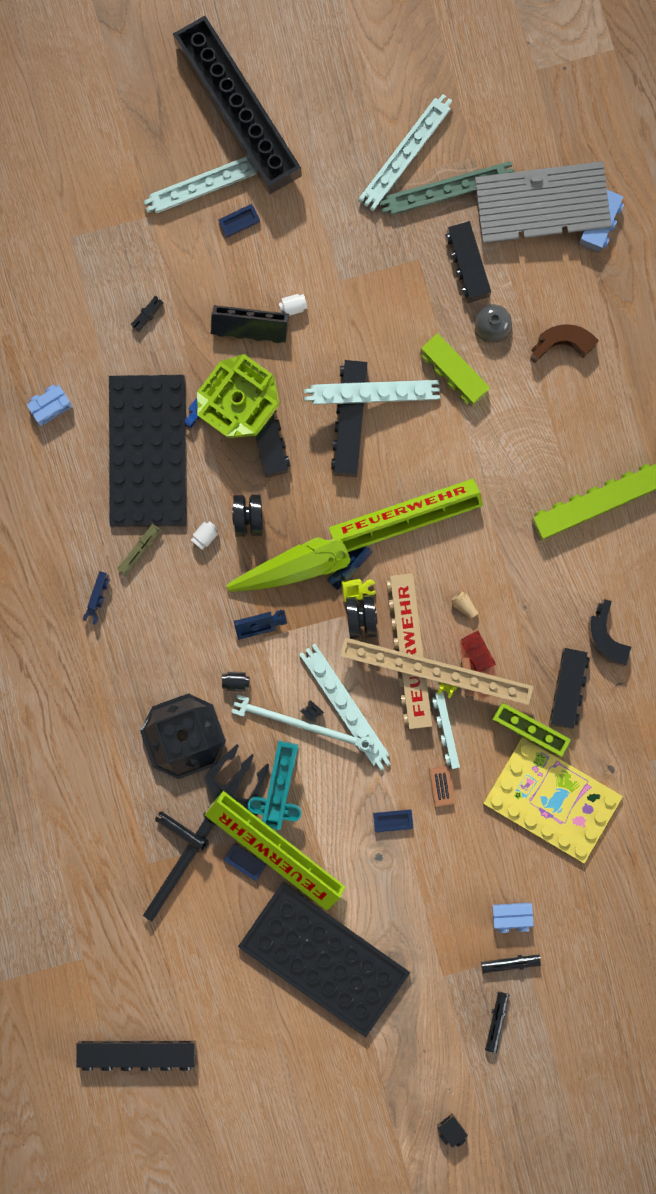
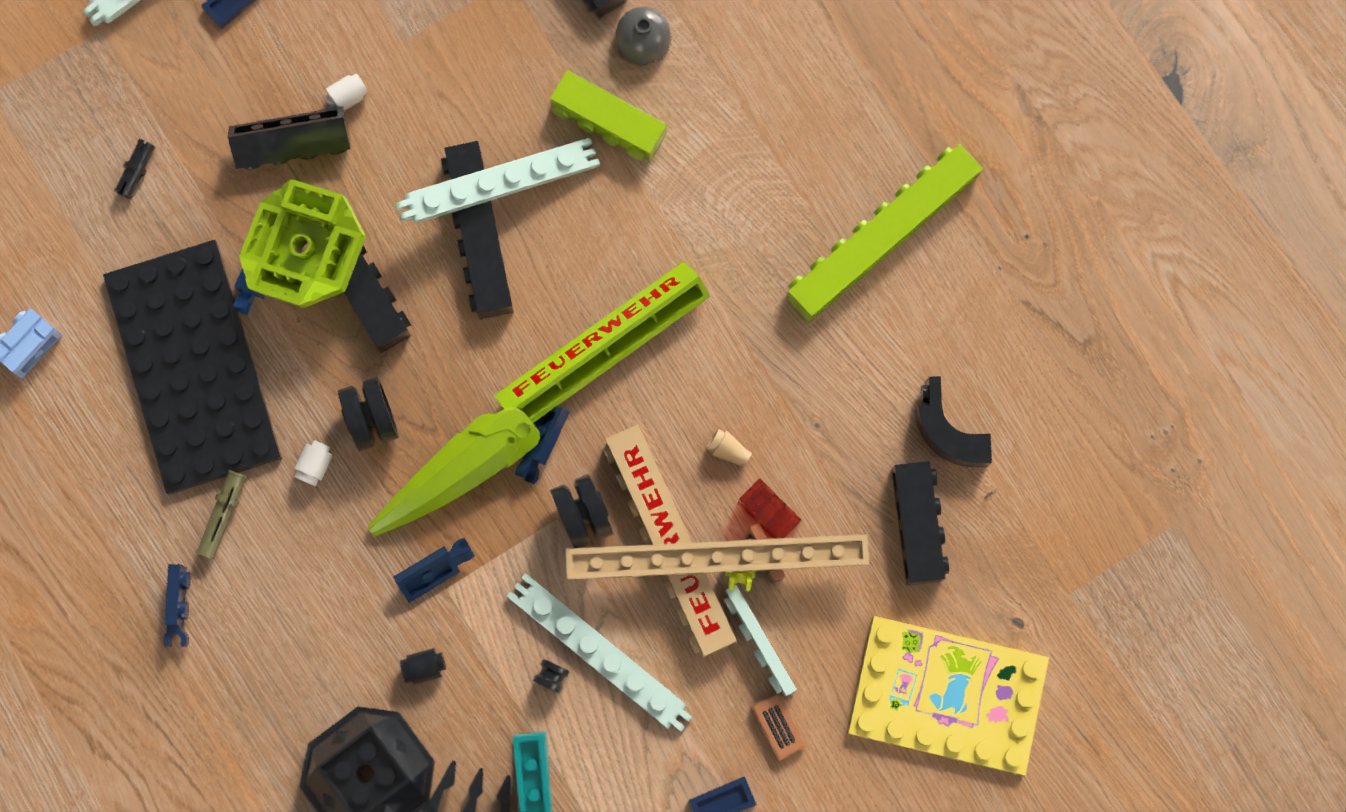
camera: 25 degrees left, 5 degrees down
(299, 723) = (449, 699): light aqua hinge -> none
(356, 588) = (561, 473): neon yellow plate -> none
(531, 729) = (884, 600): lime brick -> none
(566, 334) = (750, 21): reddish brown arch -> none

